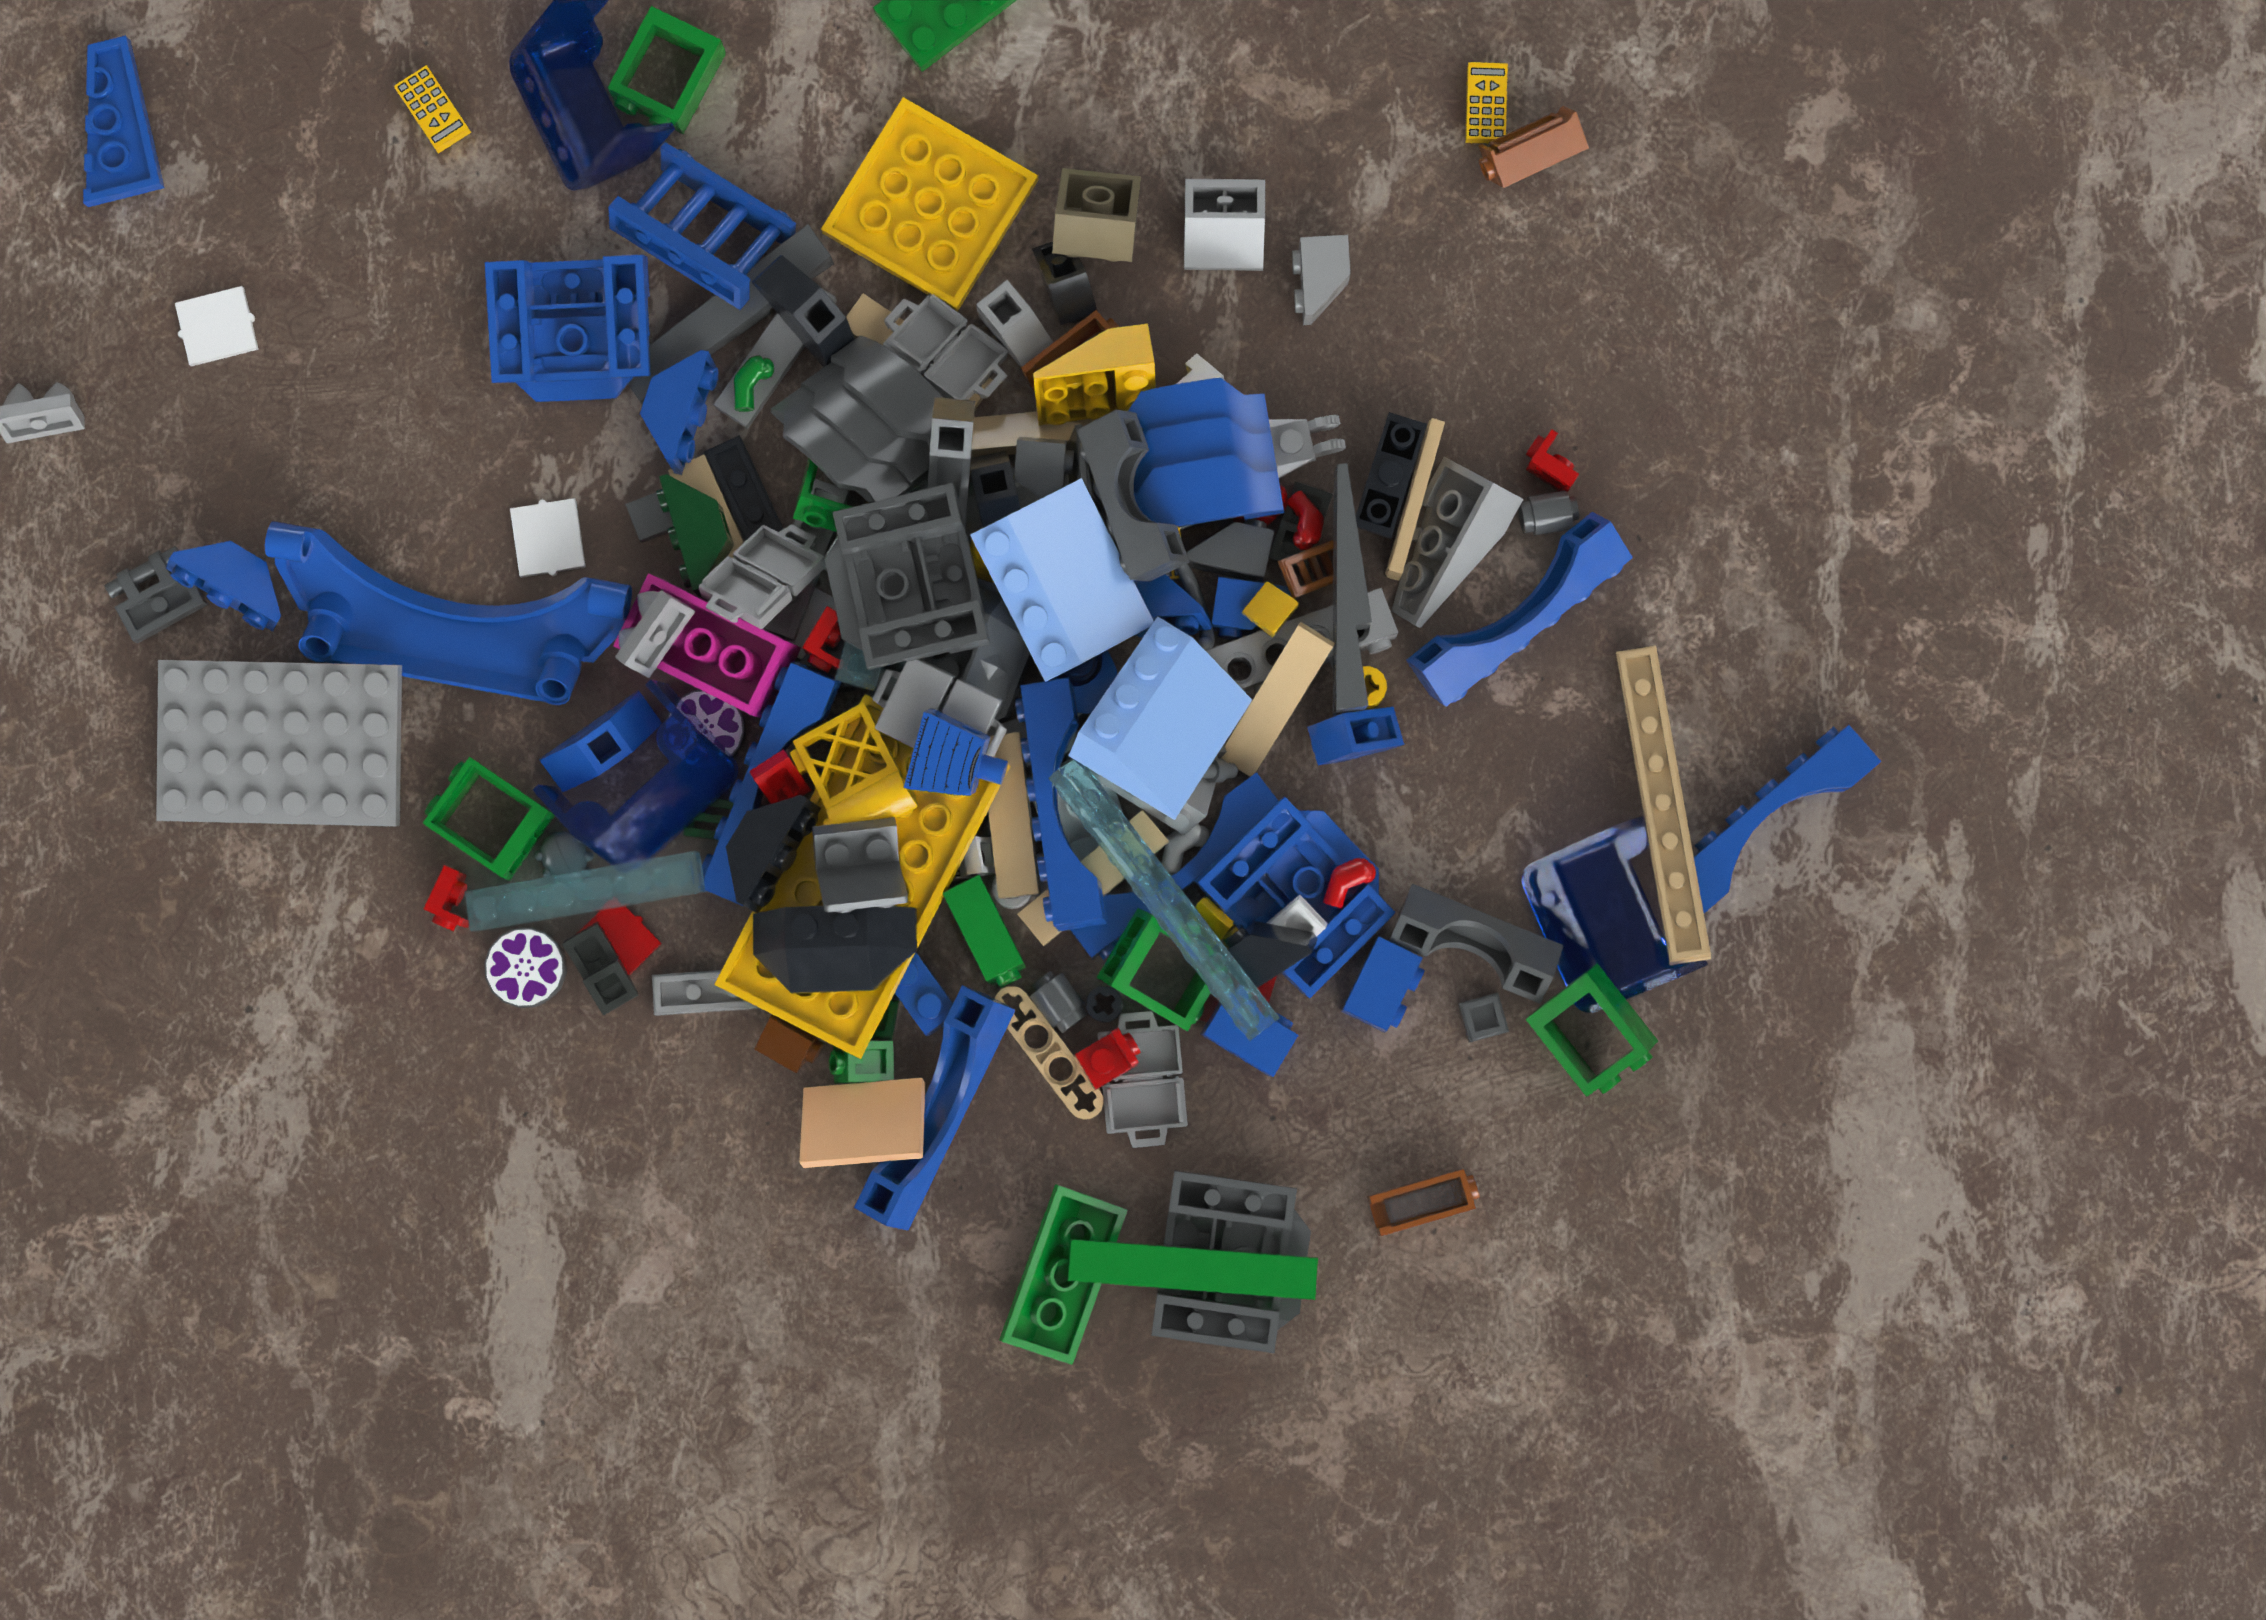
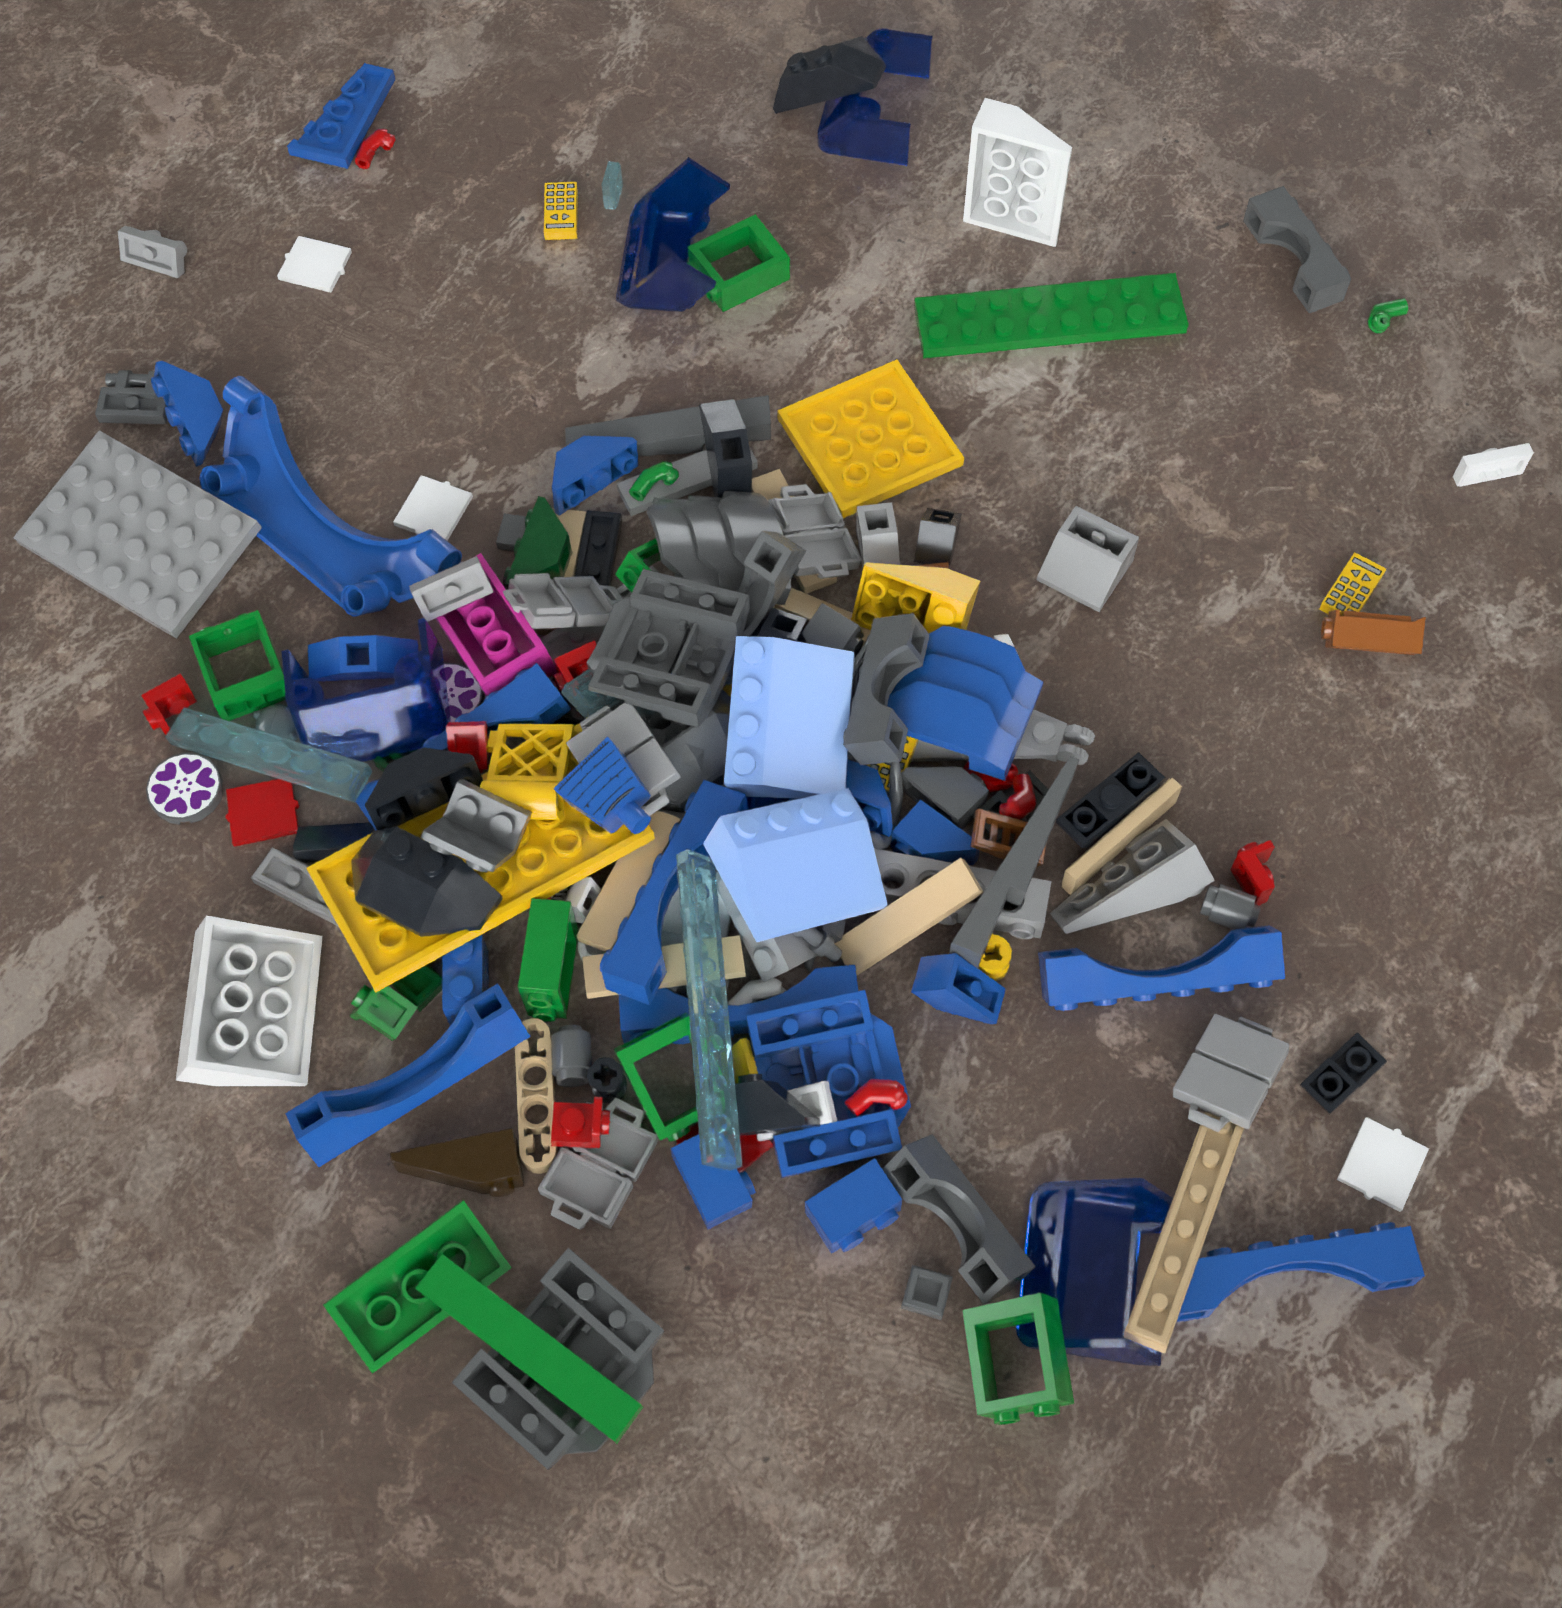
camera: 30 degrees right, 20 degrees down
(169, 142) = (371, 144): none -> red arm
(469, 48) = (612, 185): none -> clear light blue tile
(569, 326) = (548, 379): blue slope -> none
(600, 968) = (238, 818): pearl dark grey slope -> none
(692, 259) = (674, 380): blue fence -> none
(703, 933) = (321, 841): none -> black slope
(737, 1130) = (249, 1005): none -> white slope
(788, 1044) = (333, 956): reddish brown brick -> none
(862, 1122) = (344, 1053): light nougat tile -> none
(1041, 1144) = (473, 1163): none -> dark brown slope
(1096, 215) = (989, 499): dark tan brick -> none
(1270, 608) = (947, 844): yellow slope -> none
(1323, 273) = (1146, 634): light grey slope -> none
(1423, 1201) = (771, 1420): window -> none
(1631, 672) = (1230, 1072): none -> light grey piece
(1723, 612) = (1343, 1073): none -> black slope
(1796, 673) = (1383, 1164): none -> white piece

